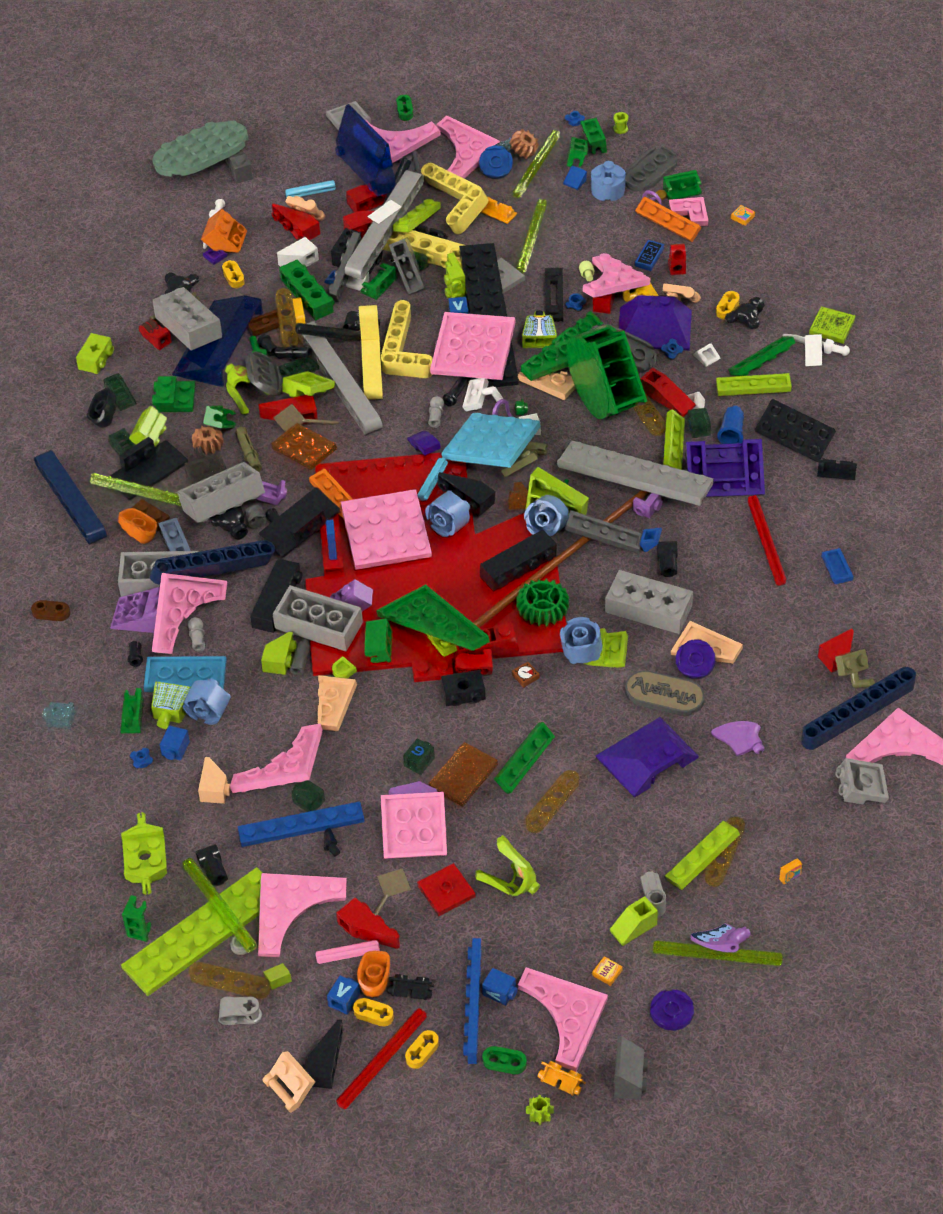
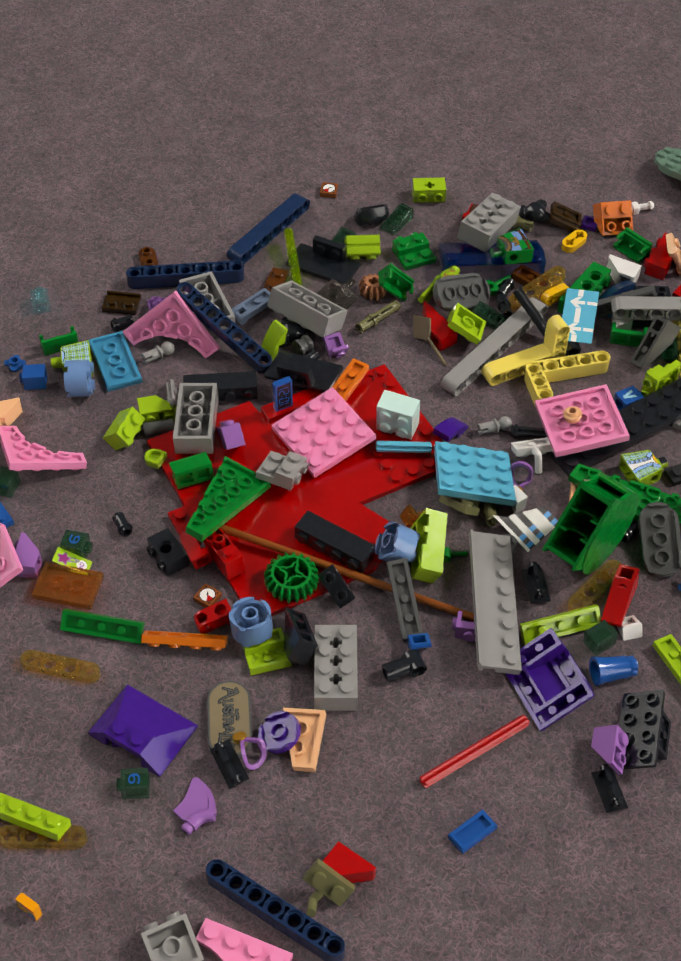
camera: 65 degrees right, 0 degrees up
(37, 433) = (329, 190): none -> dark orange tile
(97, 583) = (169, 275): none -> dark blue beam
(102, 648) = (121, 302): none -> dark brown plate
(138, 525) = (255, 275): orange piece -> none
(203, 266) = (565, 217): none -> dark brown plate
(236, 312) = (513, 248): none -> green torso
(242, 528) = (274, 337): none -> lime slope
(267, 632) = (171, 390): none -> light grey axle
(268, 235) = (633, 245): none -> green hinge
(293, 682) = (124, 428): none -> lime brick
(304, 446) = (397, 348): clear orange plate -> none
(321, 267) = (618, 289): none -> dark blue slope
(334, 700) = (124, 465): light nougat wing -> none
(339, 300) = (580, 314): none -> medium azure sticker
(401, 465) = (397, 414): none -> light aqua piece
(409, 716) = (122, 524): none -> black pin
(417, 571) = (282, 470): none -> light grey plate
(435, 764) = (69, 559): none -> sticker
(448, 514) = (359, 467): medium blue brick -> none
(466, 349) = (572, 414): none -> light nougat plate
(475, 492) = (397, 479): black slope -> none
(521, 408) = (536, 486): green plate -> none
(554, 671) = (213, 616): none -> red leg
(560, 427) = (529, 526): none -> sticker
(566, 573) = (336, 586): none -> black hinge
(568, 699) = (176, 639): none -> orange plate
(611, 616) = (298, 638): none -> black slope
(627, 445) = (536, 583): none -> black hinge
(691, 685) = (240, 738): none -> medium lavender piece
(703, 771) = (134, 783): none -> clear green brick
(712, 701) = (229, 763): none -> black hinge
(805, 453) = (611, 745): none -> medium lavender slope

